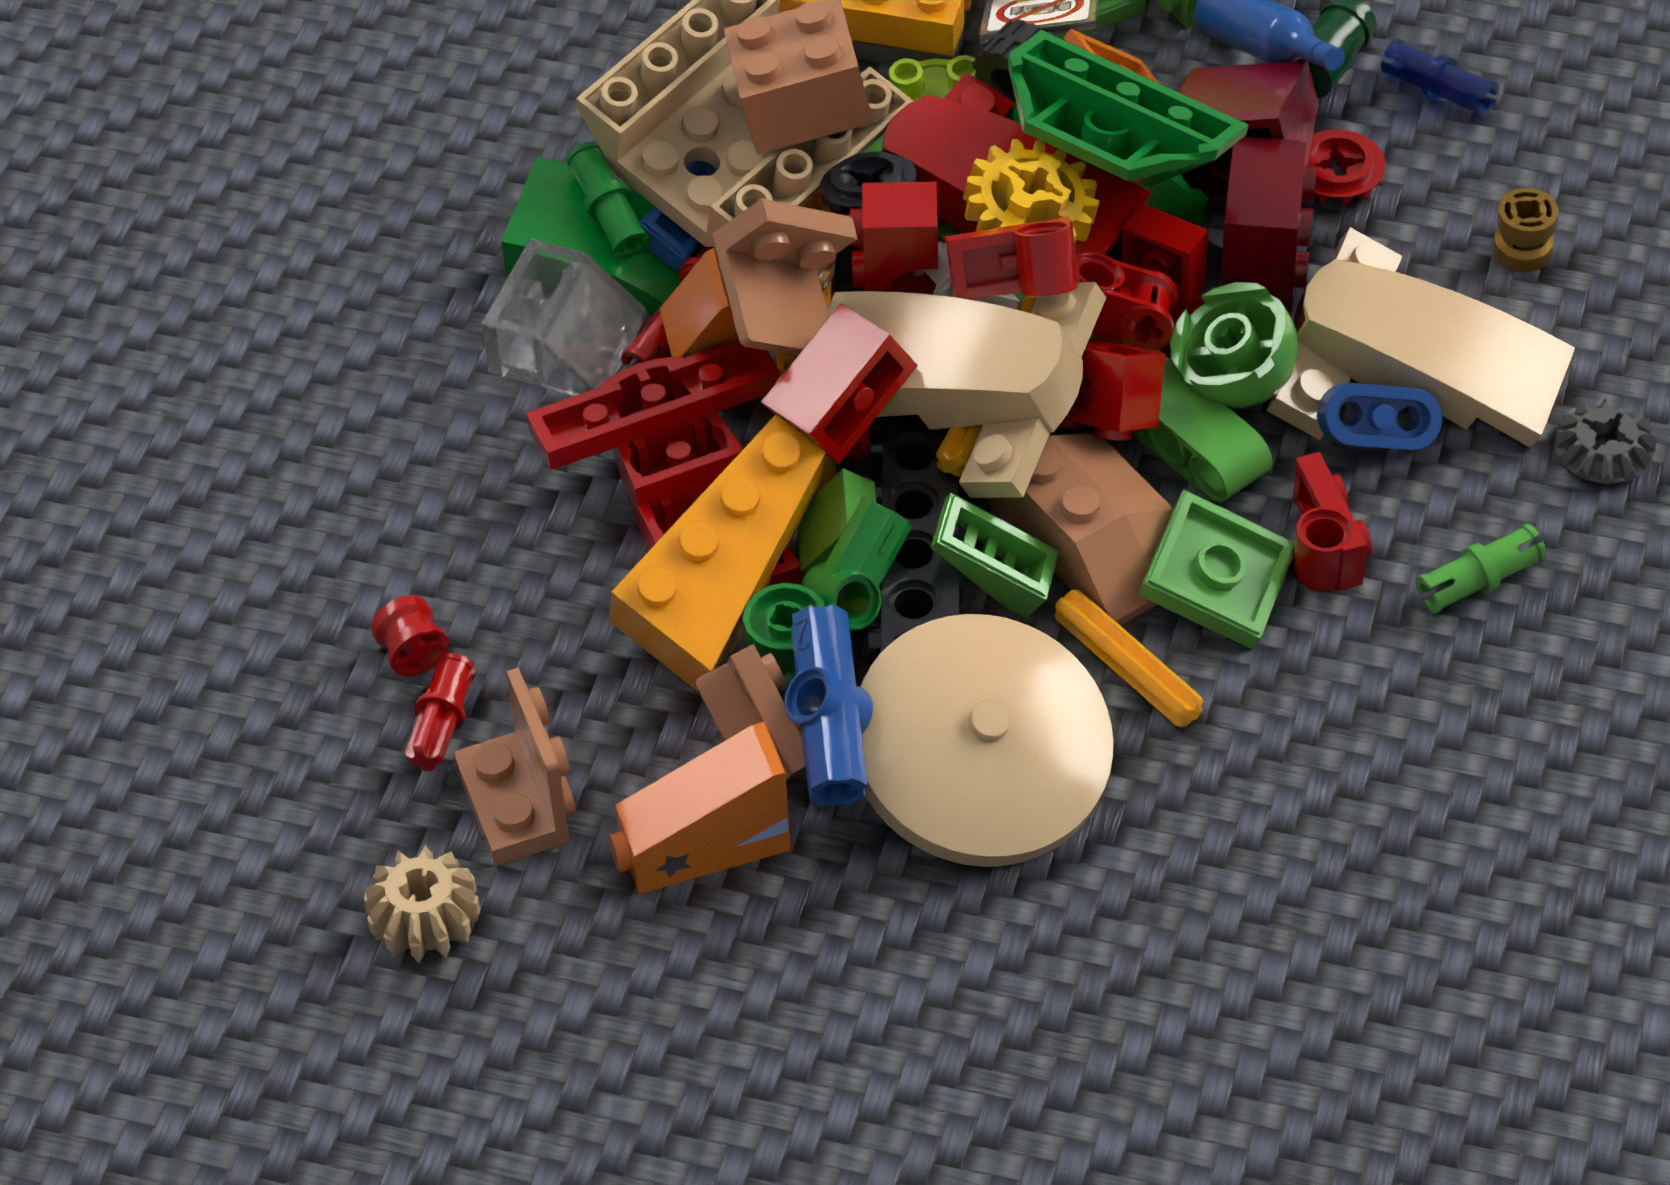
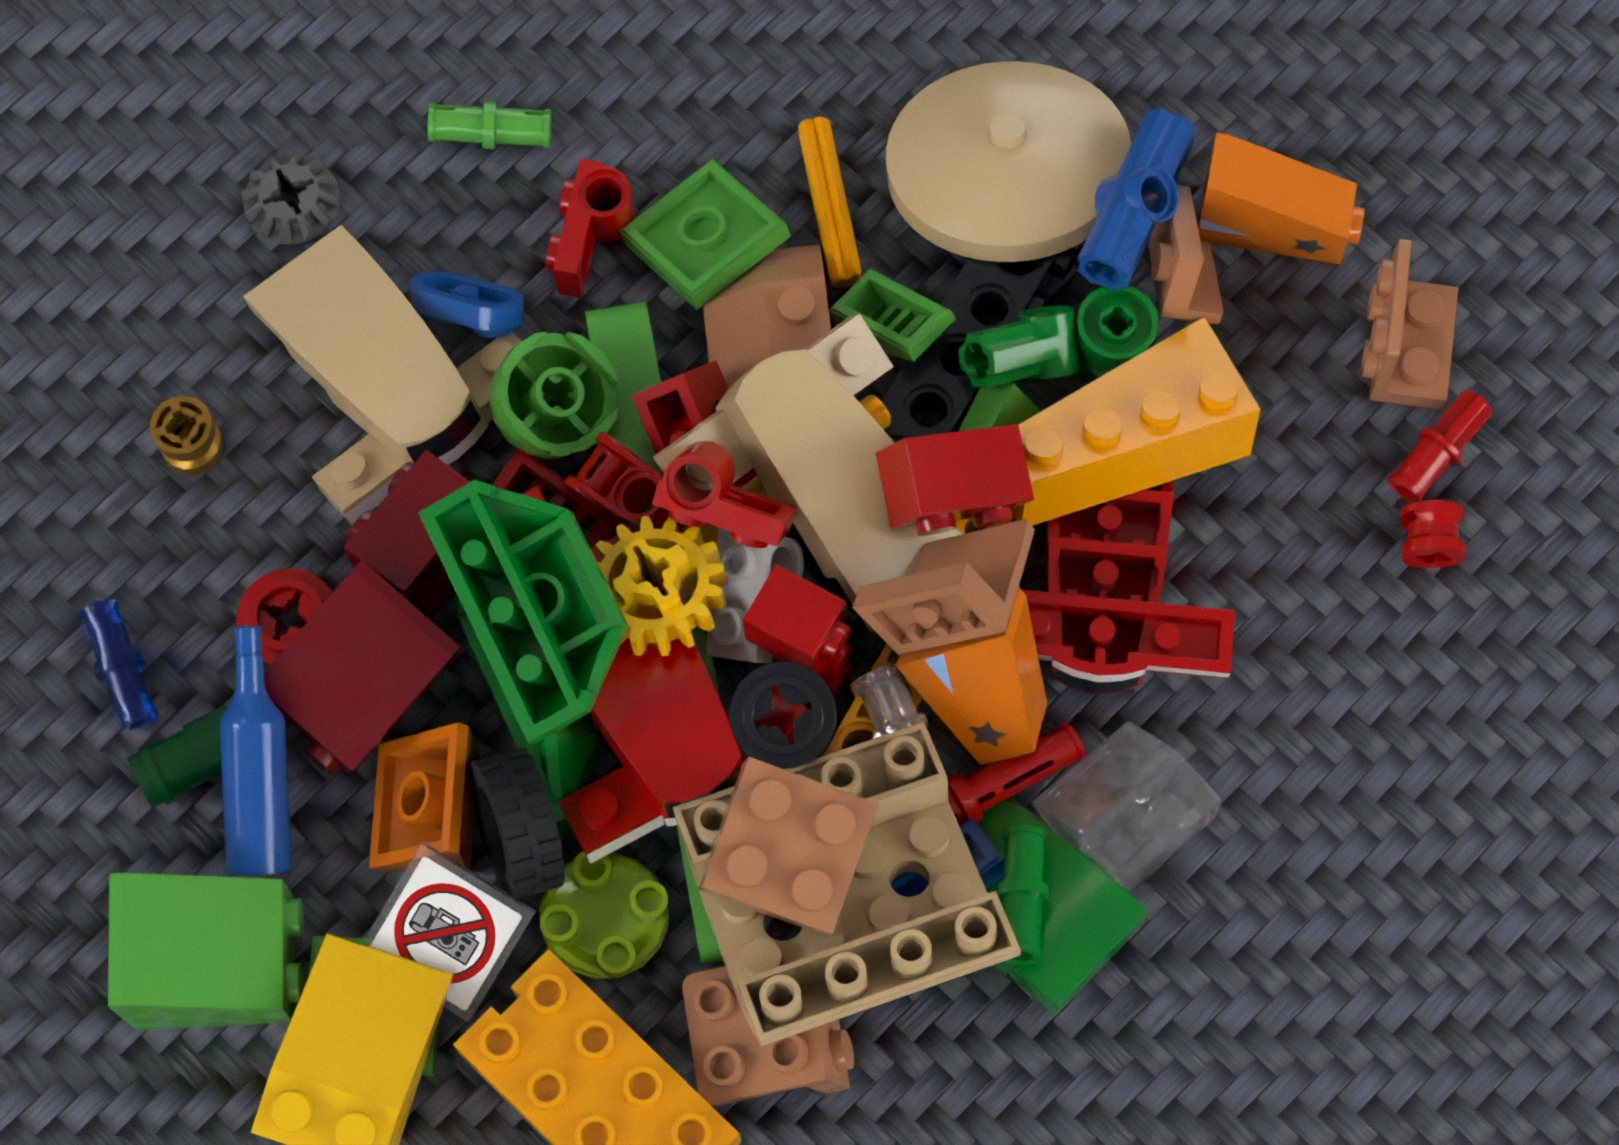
camera: 150 degrees left, 20 degrees up
(422, 904) = (1543, 240): tan gear -> none

